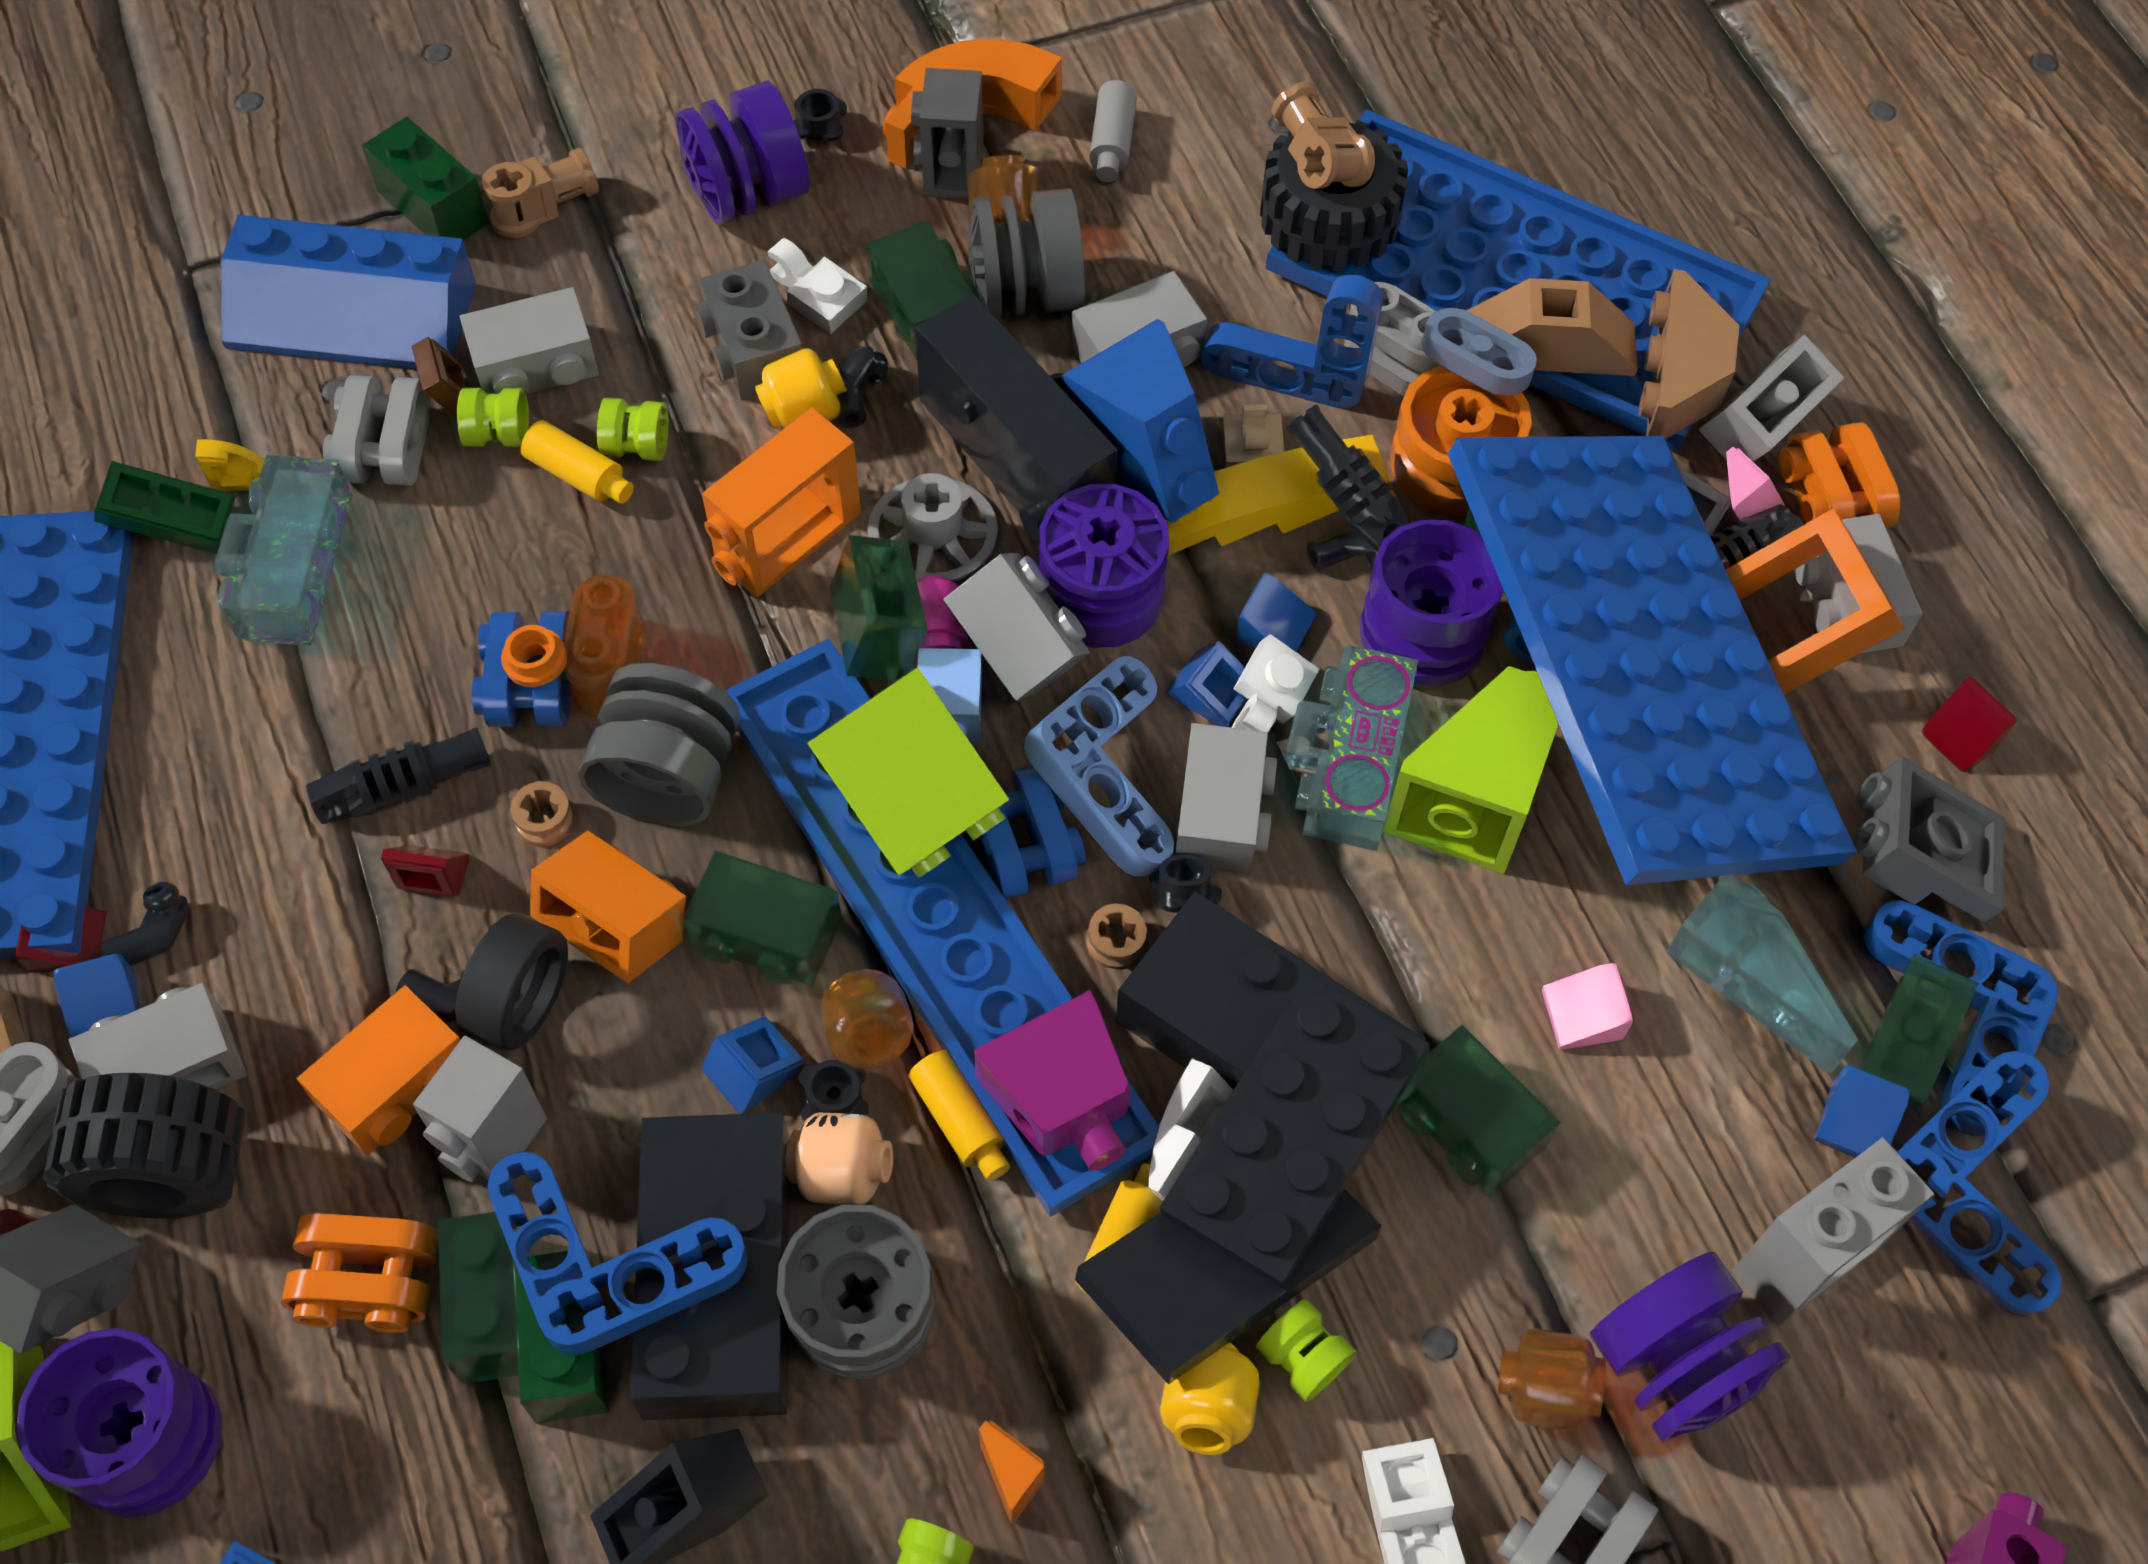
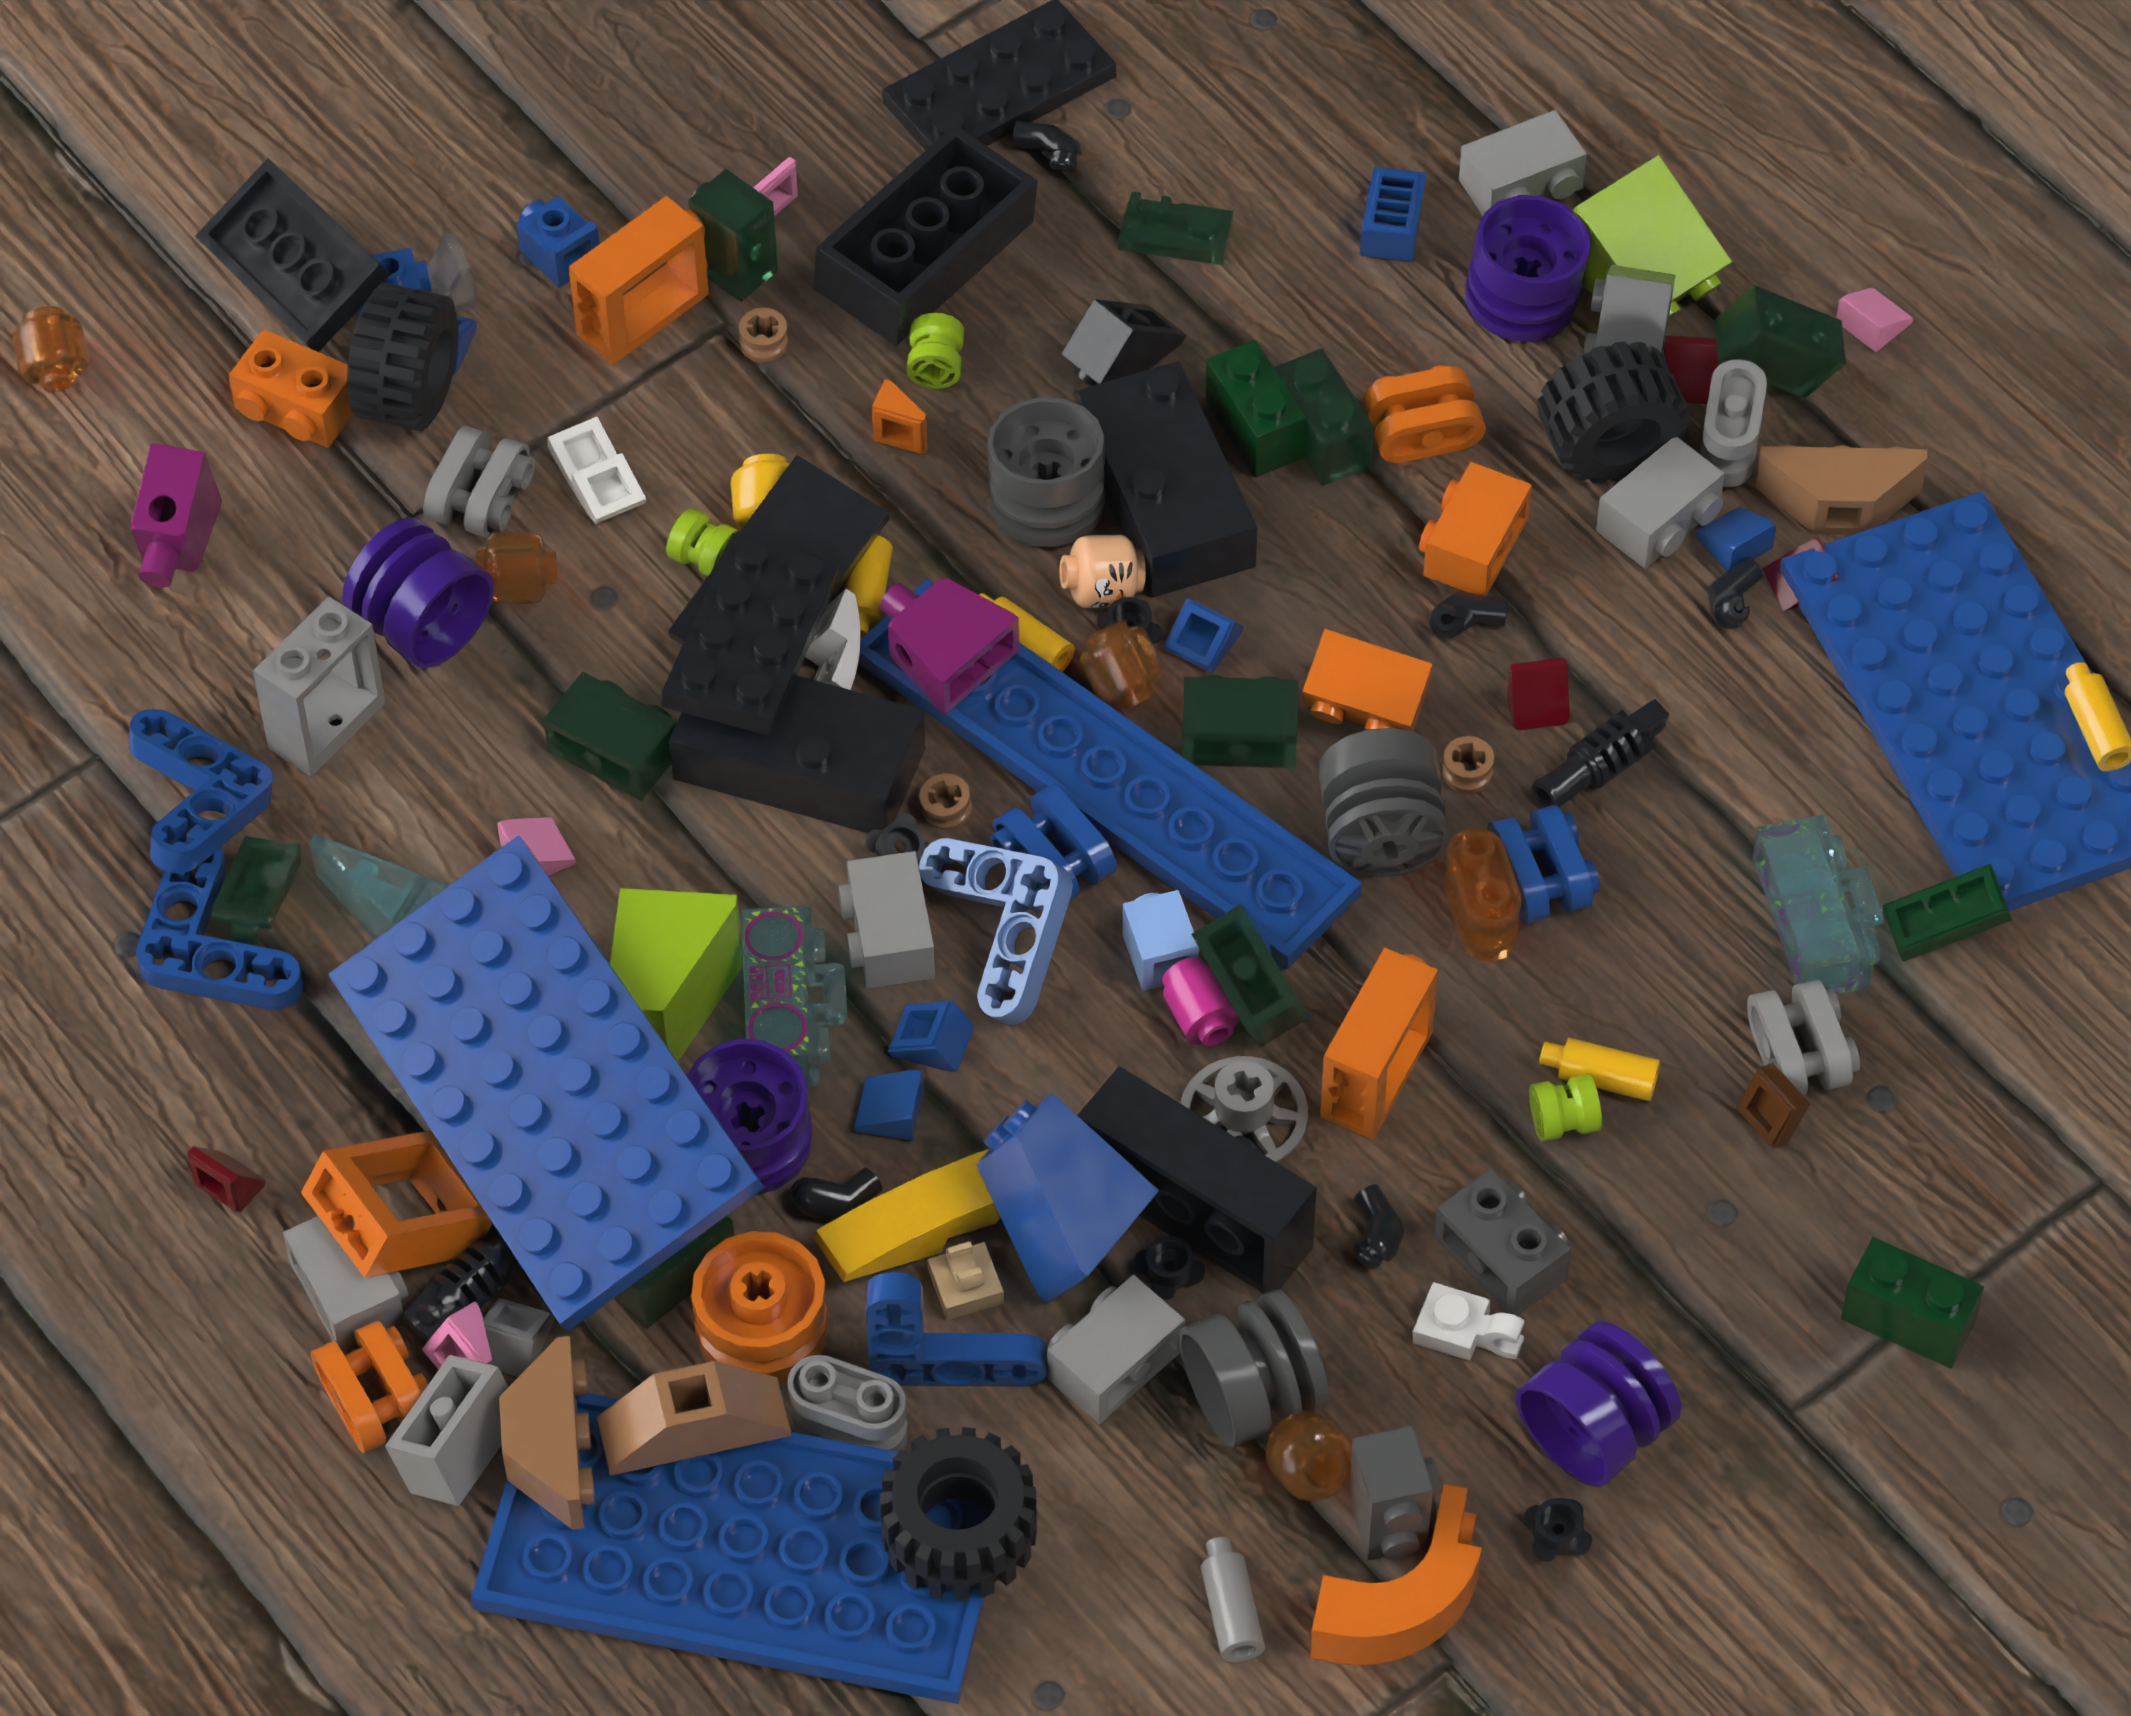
camera: 165 degrees right, 5 degrees down
(228, 465) = (1917, 974): yellow tile -> none
(341, 291) = (1921, 1174): slope -> none
(478, 1110) = (1383, 508): light grey brick -> none
(492, 417) = (1702, 1081): lime wheel -> none
(511, 981) = (1411, 603): black tyre -> none
(529, 642) = (1523, 816): orange plate -> none
(530, 343) = (1709, 1162): light grey brick -> none
(535, 191) = (1801, 1334): medium nougat connector -> none
(579, 1282) = (1245, 399): blue beam -> none
(797, 384) = (1419, 1177): yellow head -> none
(910, 774) = (1161, 814): lime slope -> none
(915, 277) = (1358, 1336): clear green brick -> none
(1018, 624) = (1118, 988): light grey brick -> none
(1106, 561) = (1061, 1050): dark purple wheel -> none
(1273, 684) = (876, 1040): white plate -> none
(1322, 145) = (974, 1485): medium nougat connector -> none
(1349, 479) = (850, 1189): black hinge -> none
(1479, 351) = (763, 1329): sand blue plate -> none
(1861, 1111) = (295, 823): blue slope -> none
(1931, 839) = (255, 1040): dark grey plate -> none

